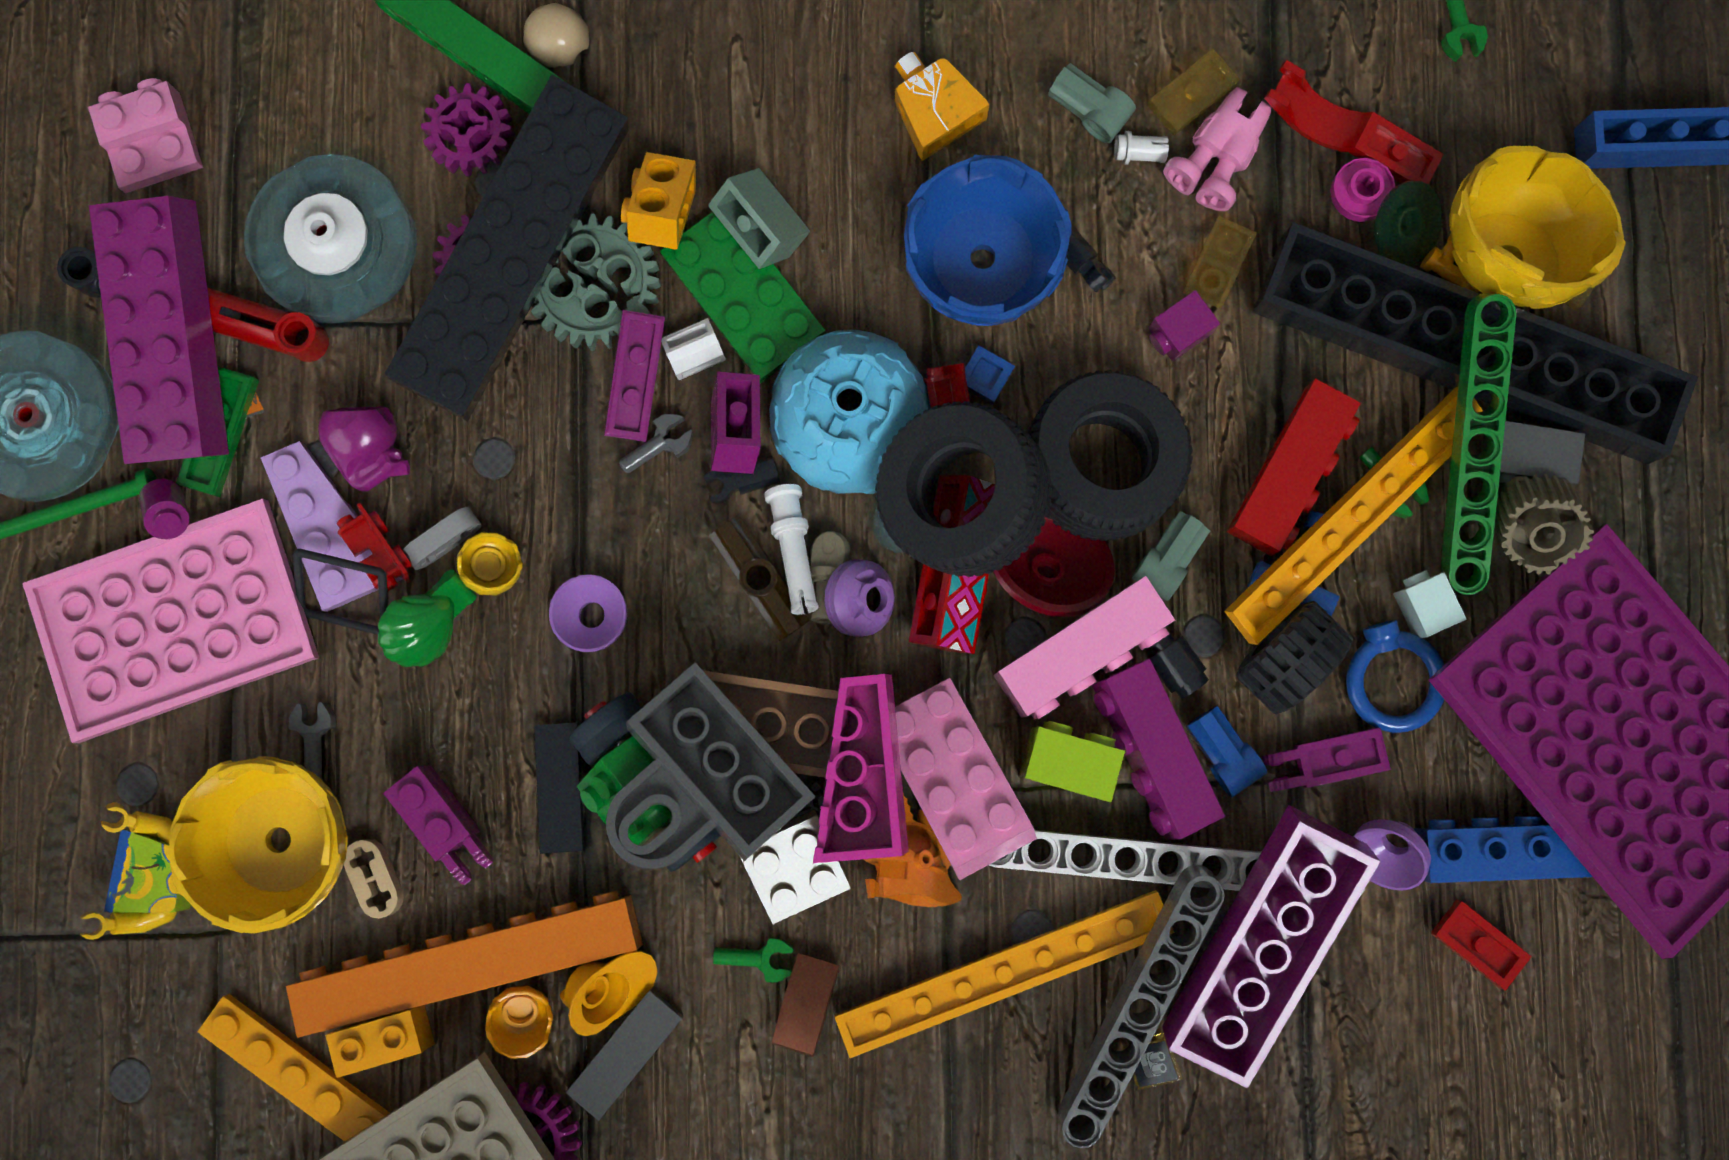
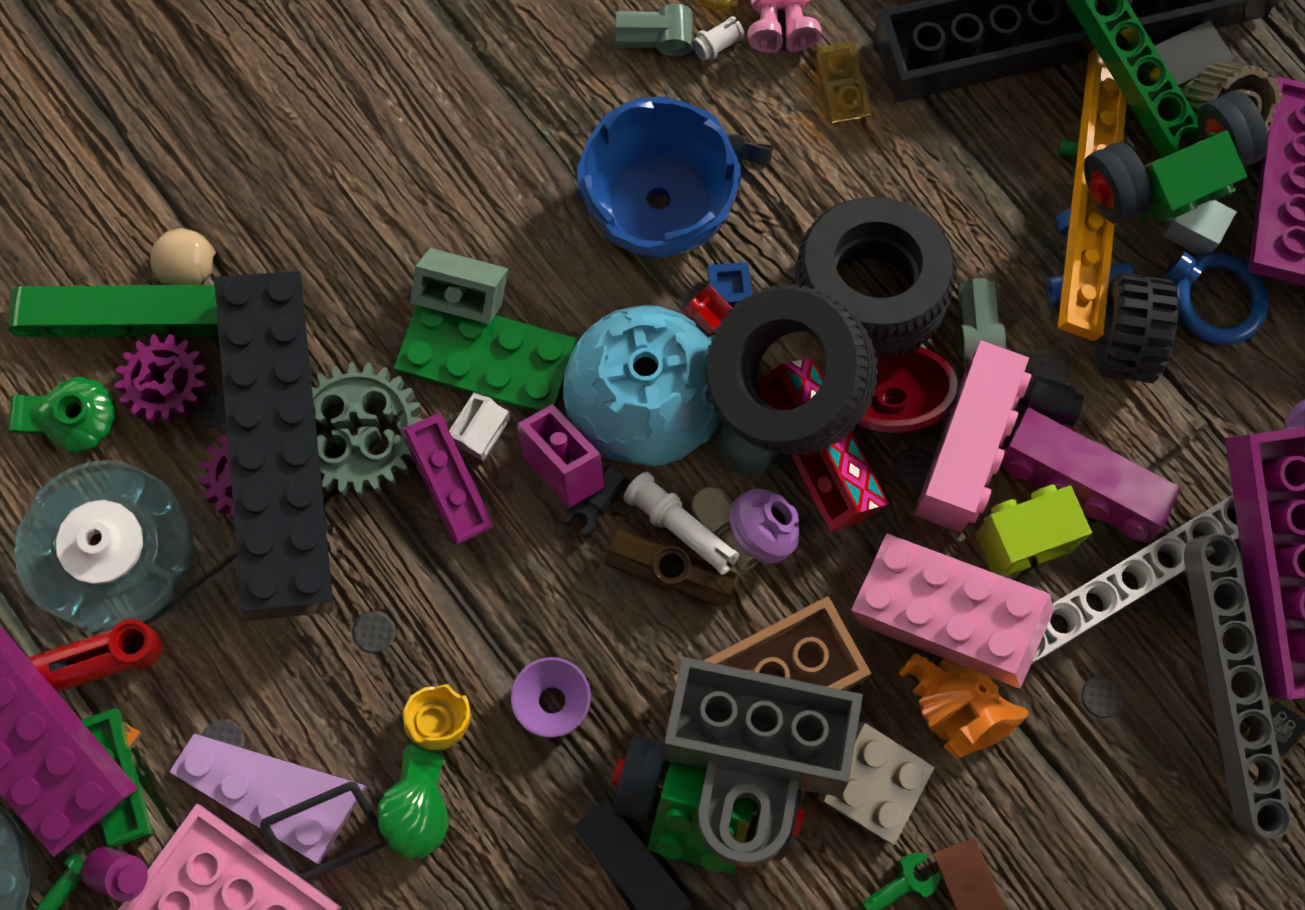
camera: 45 degrees left, 10 degrees down
(362, 445) = (255, 696): magenta piece -> none
(367, 533) = (313, 764): red hinge -> none
(378, 109) = (71, 415): none -> green animal
(442, 538) = (378, 726): light grey beam -> none
(658, 443) = (505, 522): dark grey bar -> none
(659, 200) = (369, 325): light orange brick -> none
(864, 780) = (890, 659): dark pink wedge -> none
(936, 103) = (534, 108): light orange torso -> none
(998, 975) = (1104, 751): light orange plate -> none
(1182, 326) = (853, 145): magenta brick -> none
(1231, 760) = (1149, 444): blue piece -> none
(1294, 467) = (1020, 192): red brick -> none
(1332, 759) = (1221, 390): magenta hinge -> none
(1439, 559) = (1178, 183): none -> brick

